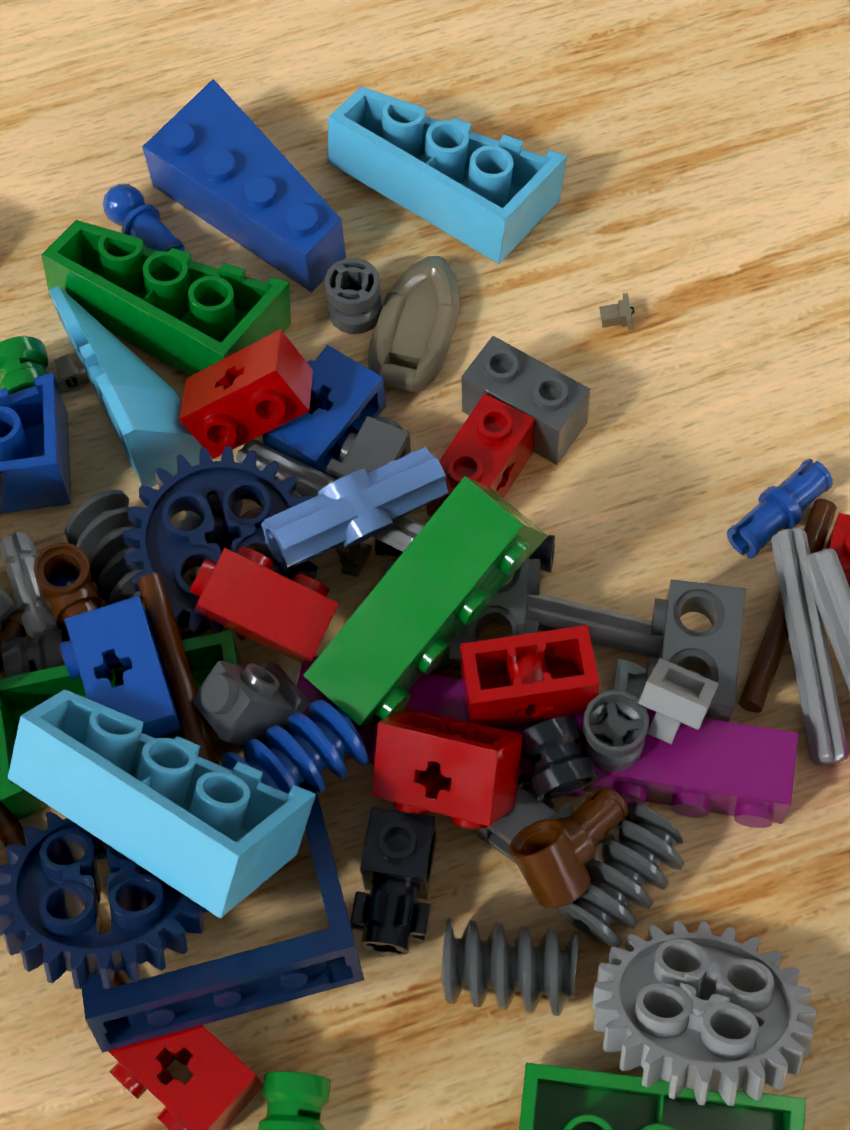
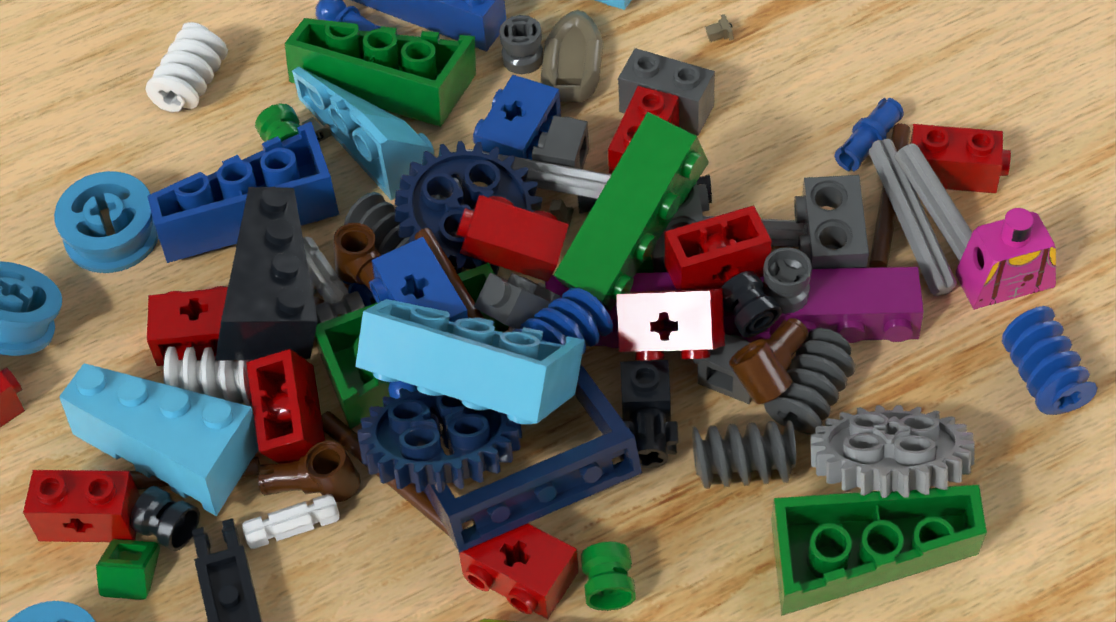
camera: 10 degrees left, 10 degrees down
(247, 394) = (462, 110): red brick -> none
(354, 508) = (564, 165): medium blue piece -> none
(677, 699) = (826, 247): light grey tile -> none

